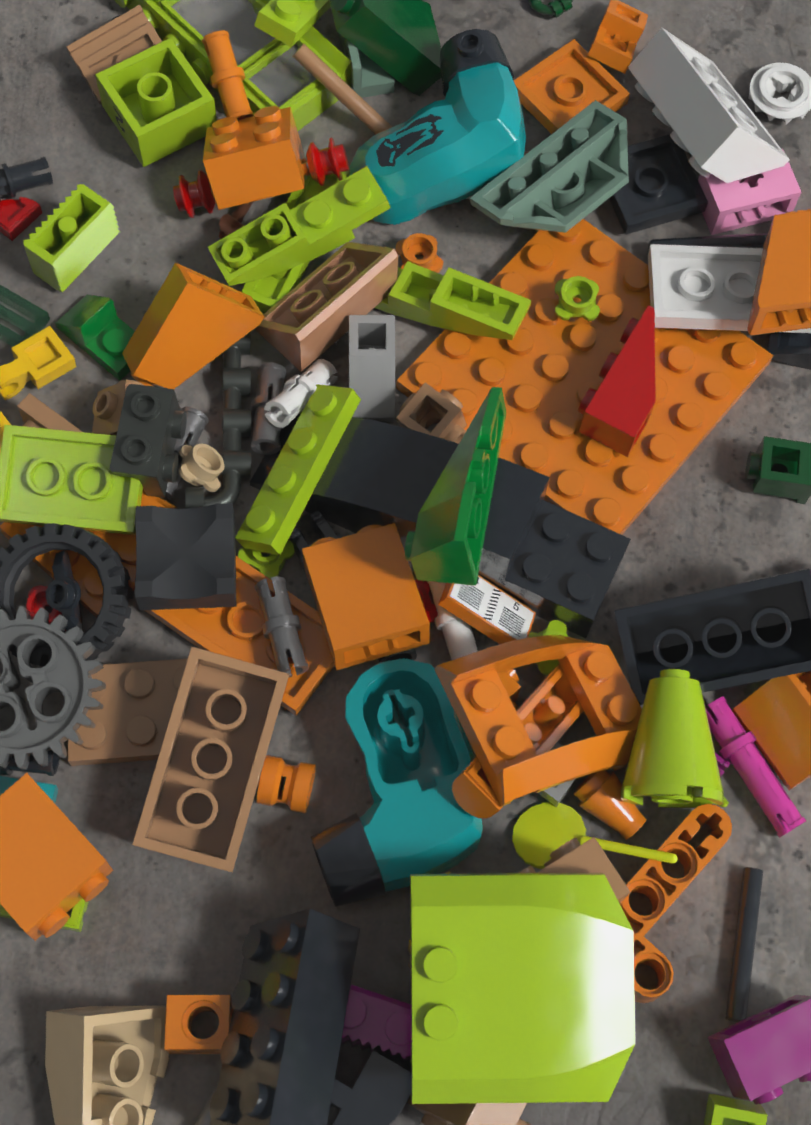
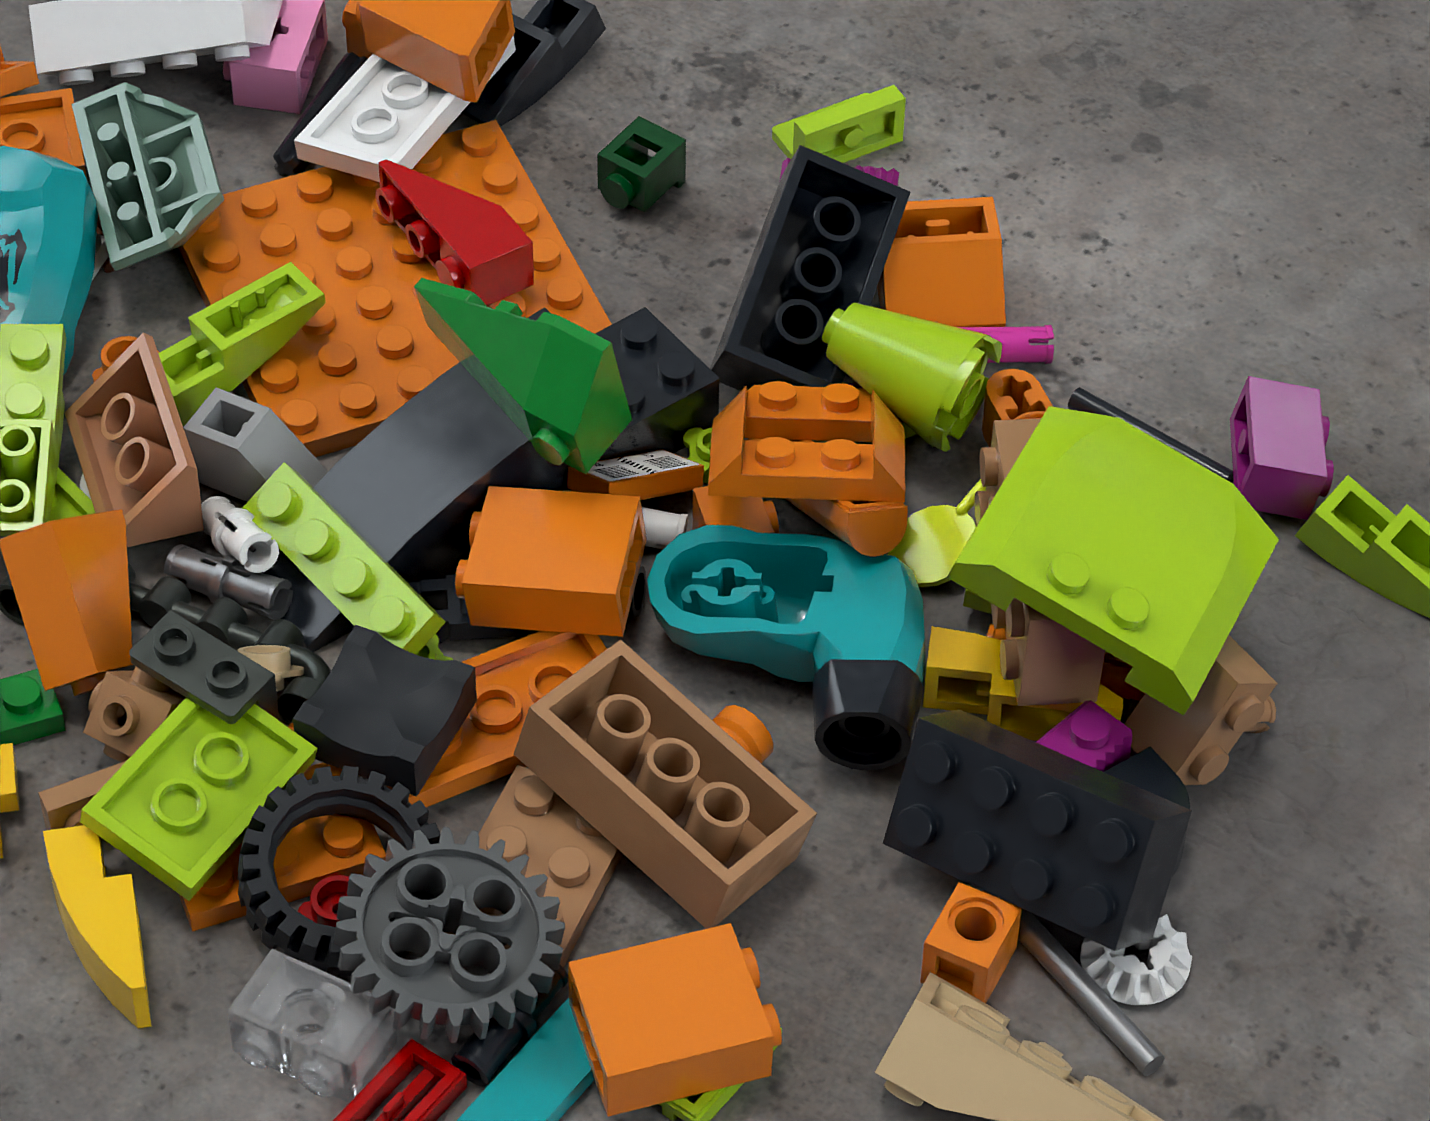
camera: 60 degrees left, 20 degrees down
(65, 591) = (335, 859): black piece -> none
(281, 626) = (524, 662): flat silver pin -> none
(432, 407) = (357, 411): medium nougat brick -> none
(577, 288) = (309, 234): lime plate -> none
(602, 798) = (937, 476): orange cone -> none
(659, 186) = (229, 112): black plate -> none

